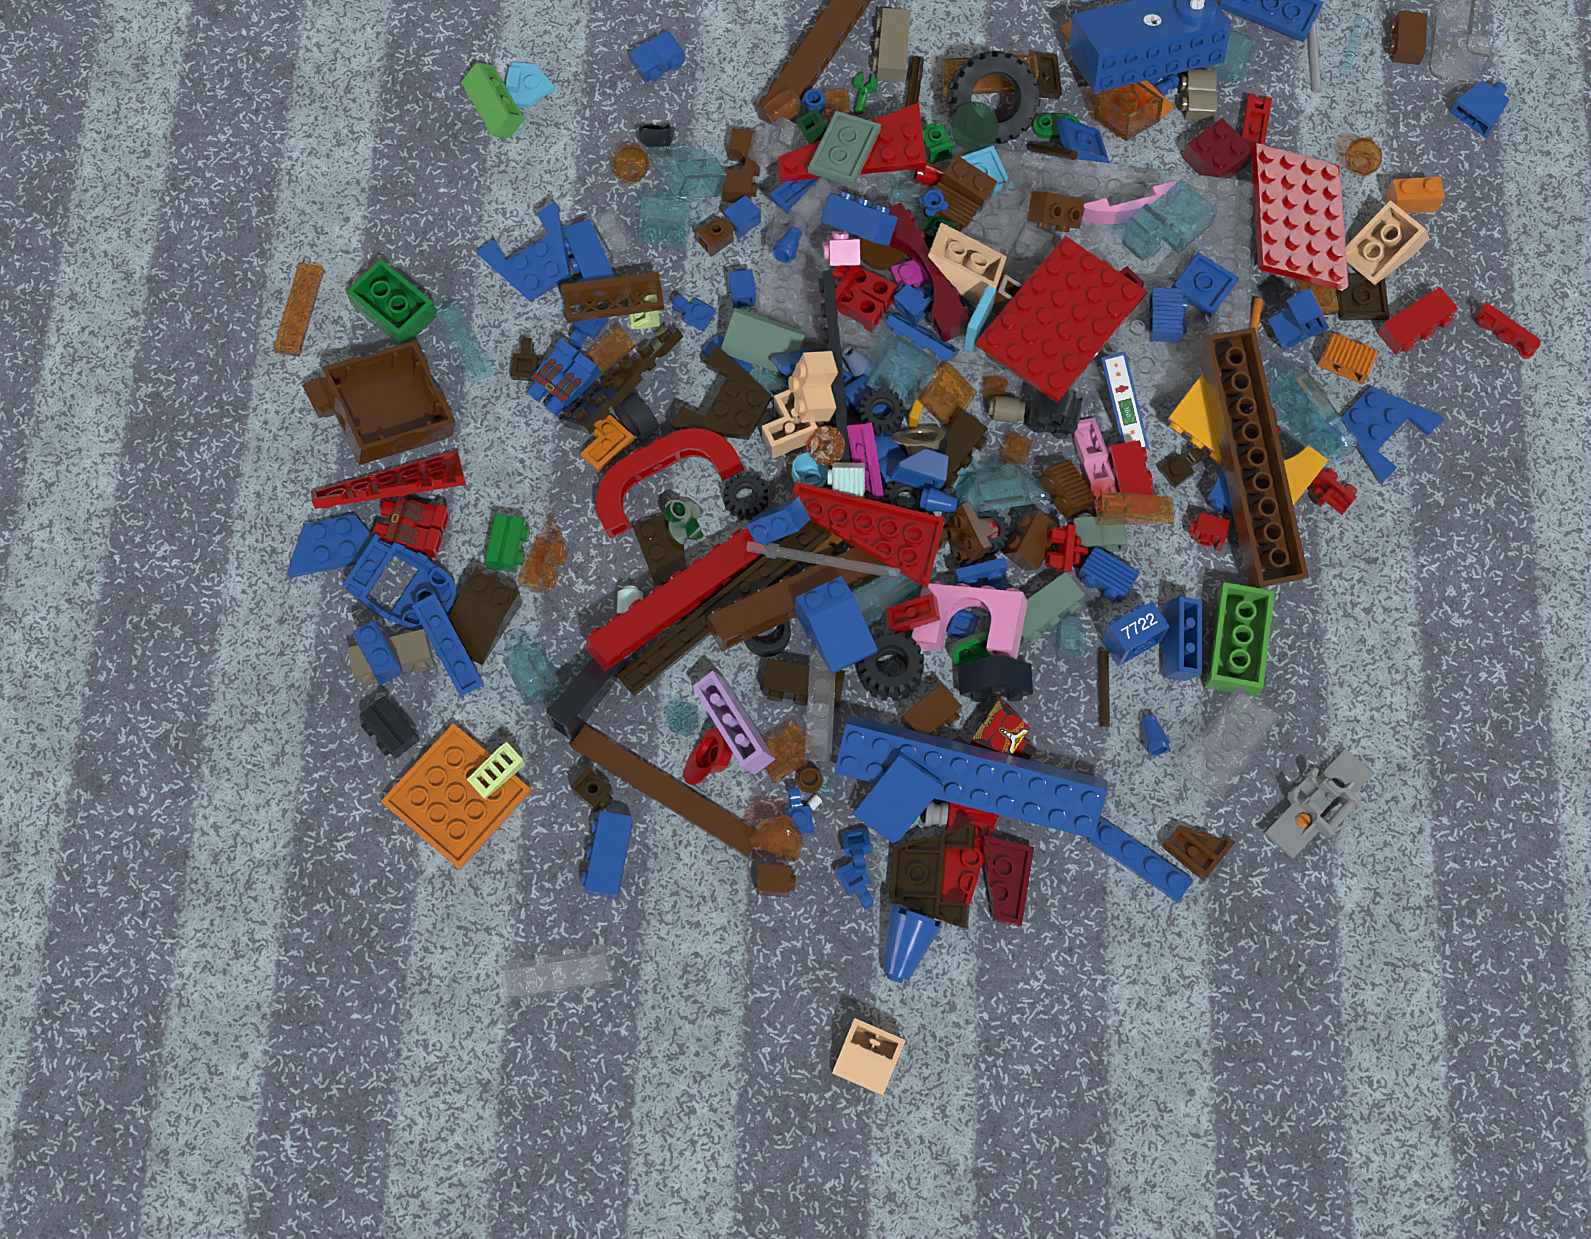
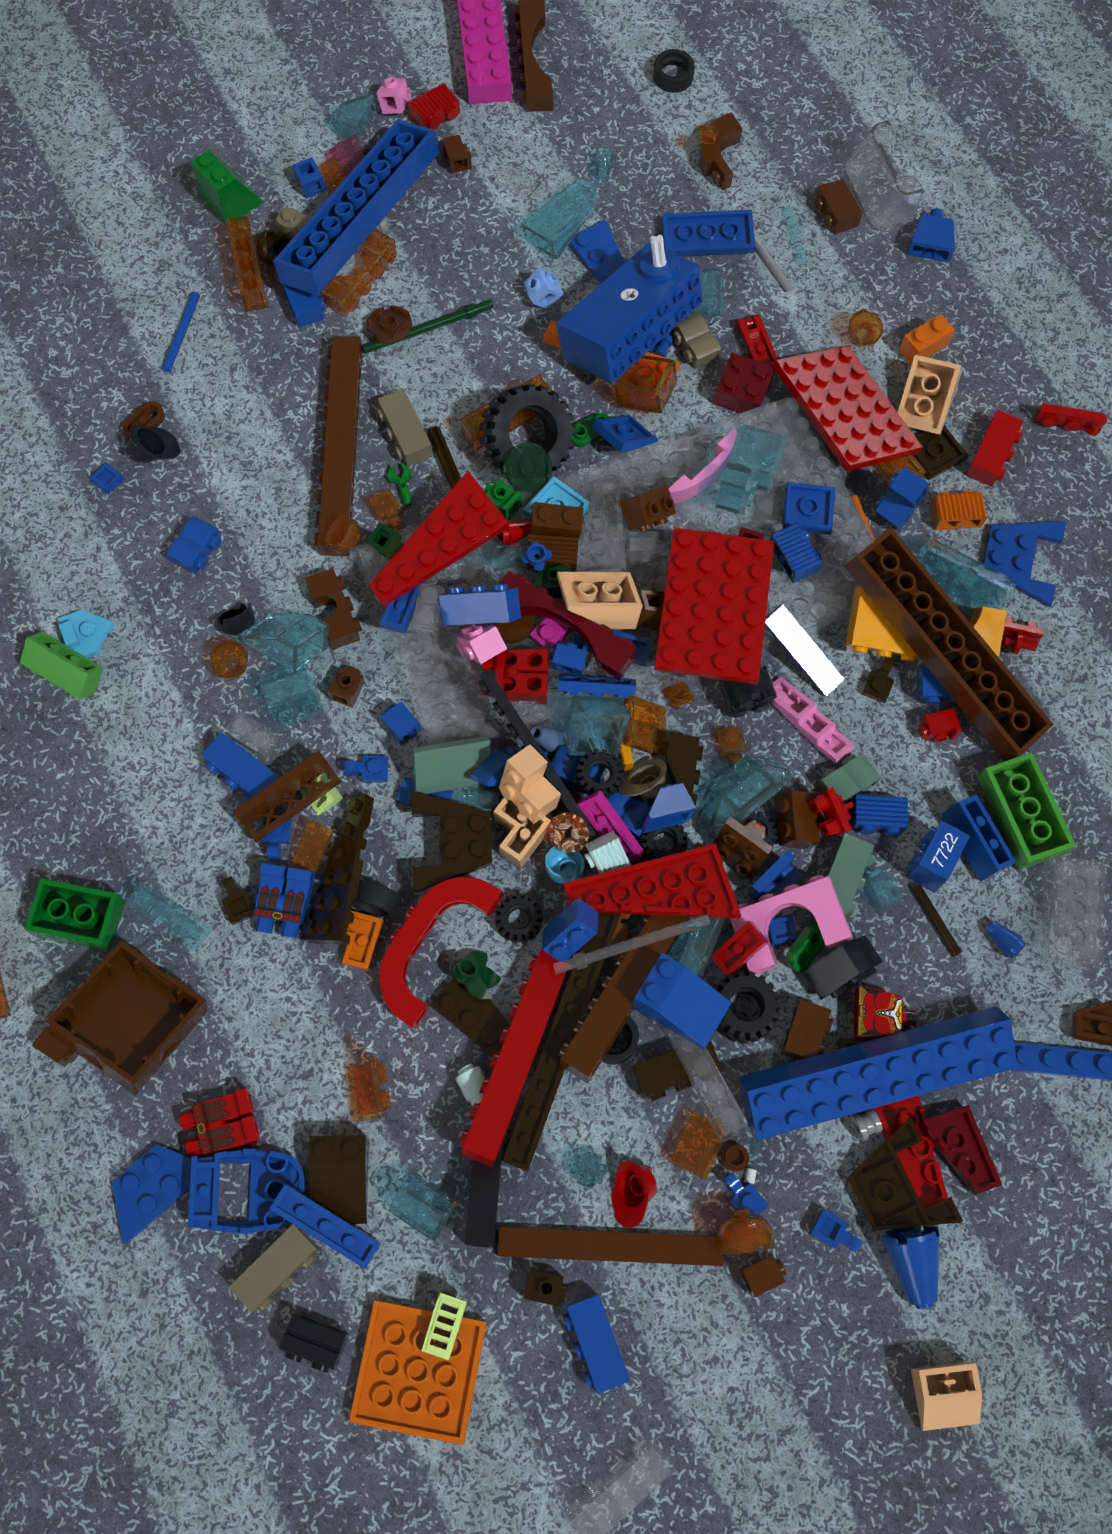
camera: 30 degrees left, 0 degrees up
(377, 652) = (264, 1277): blue brick -> none
(414, 477) = (196, 1077): red wing -> none
(506, 543) = (322, 1090): green brick -> none
(537, 266) = (196, 803): blue wing -> none
(733, 723) = (639, 1146): lavender brick -> none
(743, 215) = (362, 654): blue panel -> none
(773, 141) = (354, 572): clear brick -> none
(787, 246) = (424, 664): blue cone -> none
(813, 99) = (366, 516): blue cone -> none
(844, 148) = (427, 547): sand green tile -> none
(857, 844) = (816, 1196): blue plate -> none
(898, 798) = (829, 1132): blue tile -> none
(938, 501) = (698, 829): blue cone -> none
(979, 318) = (644, 643): medium azure tile -> none
(1007, 409) = (702, 709): dark tan brick -> none
(1048, 76) = (559, 385): dark brown plate -> none
(1052, 151) = (605, 454): dark brown bar -> none
(1067, 488) = (798, 754): reddish brown brick -> none
(1130, 469) = (851, 717): red brick -> none
(1133, 509) = (870, 744): clear orange slope -> none

